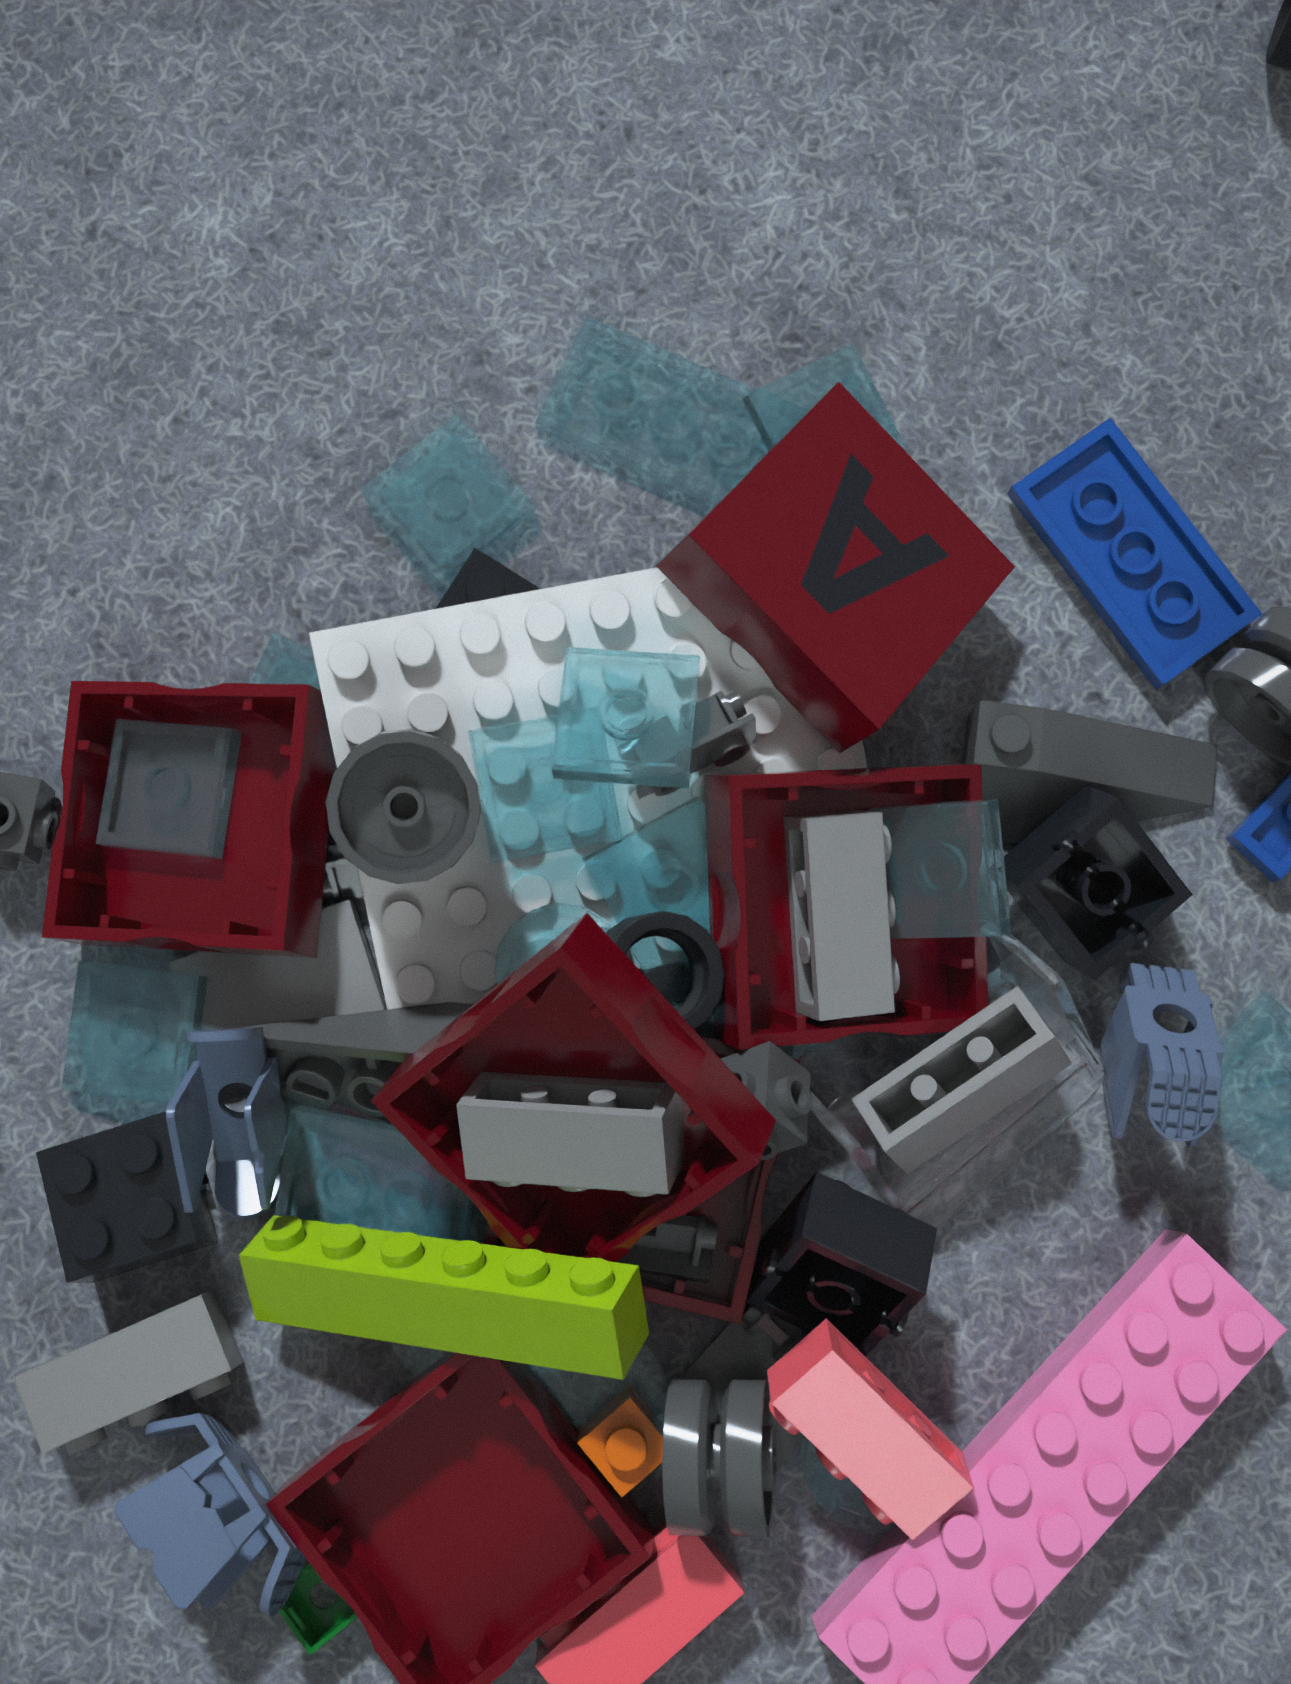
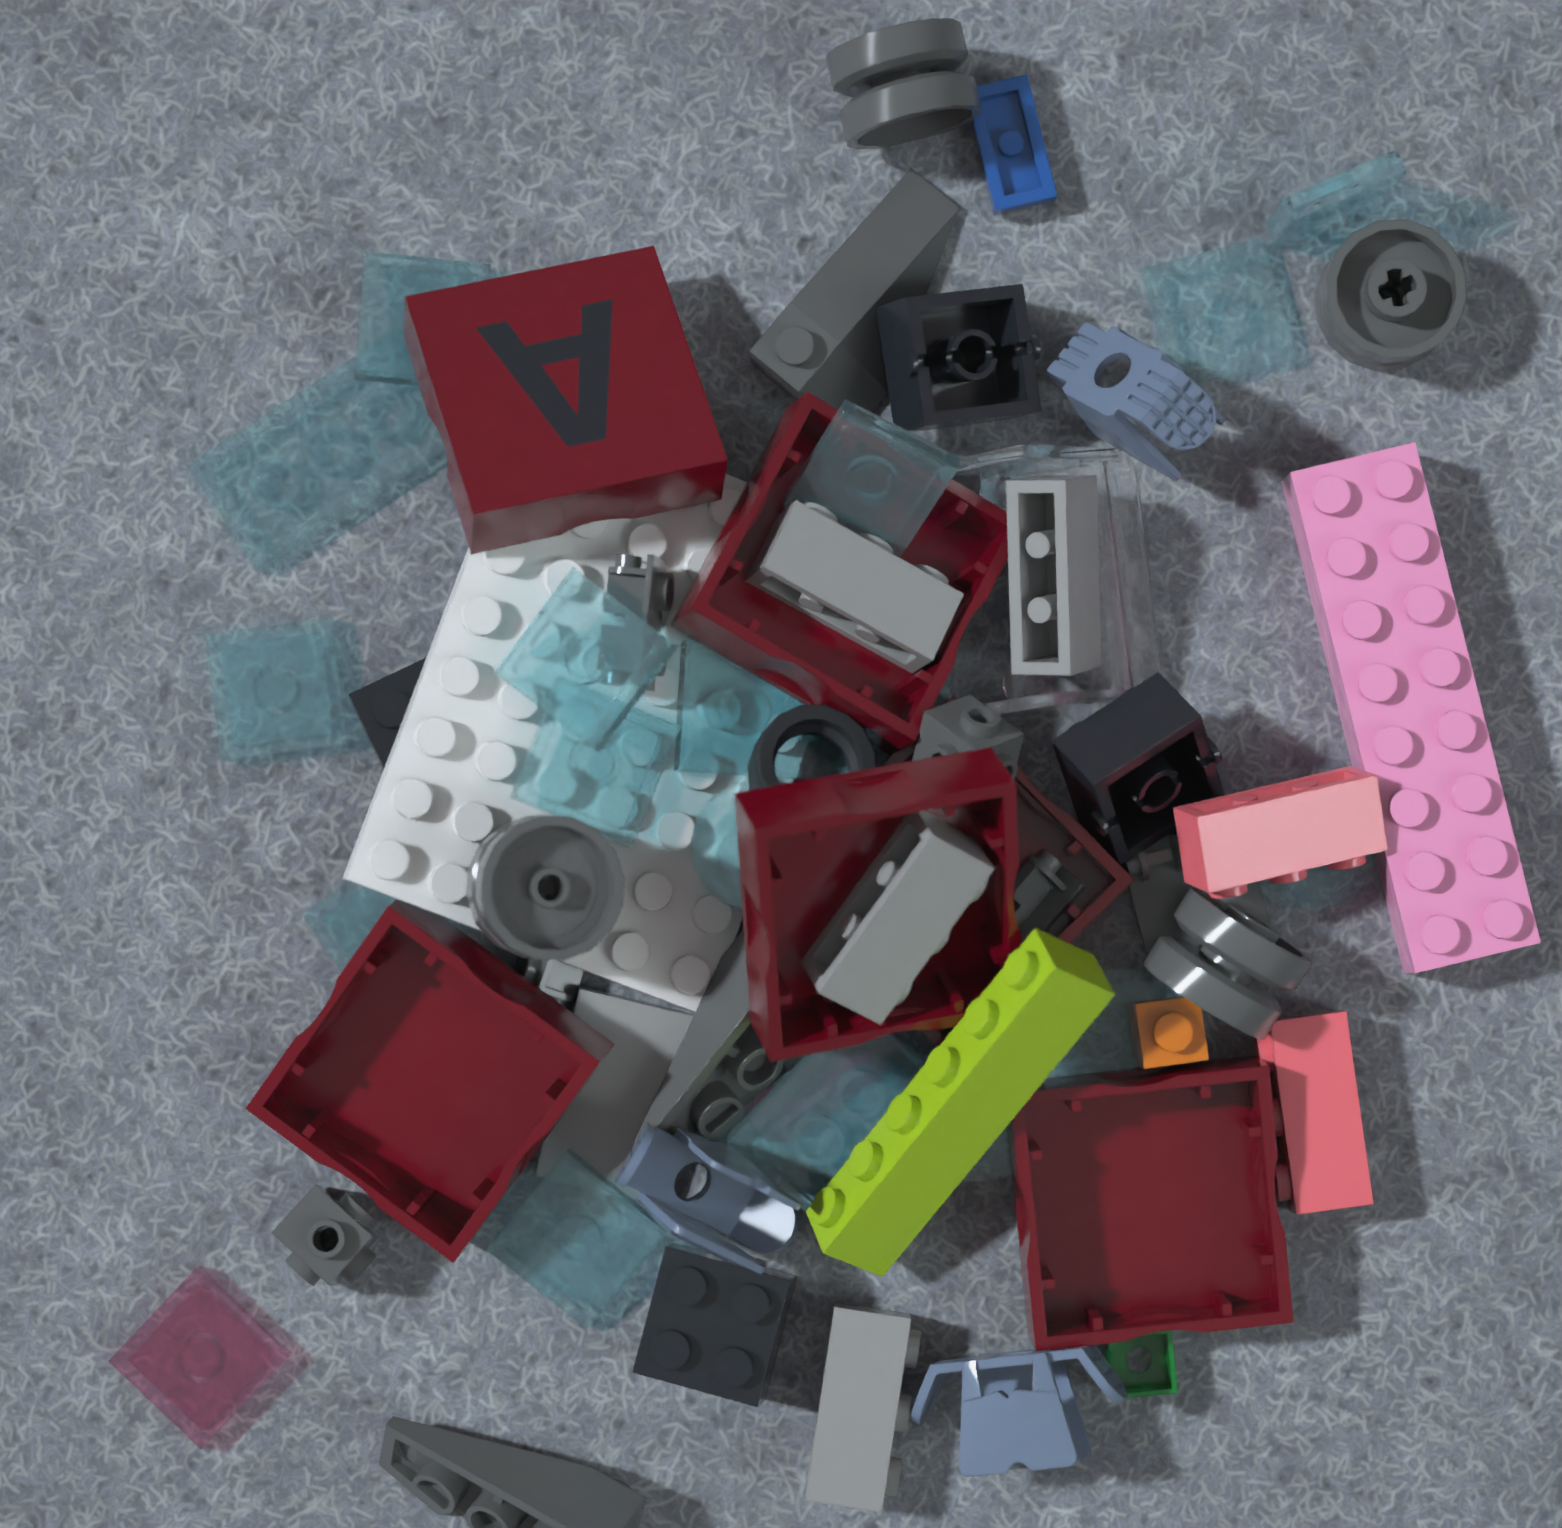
camera: 55 degrees left, 5 degrees up
(169, 788) = (387, 1083): clear light blue tile -> none
(1133, 553) = (702, 130): blue plate -> none

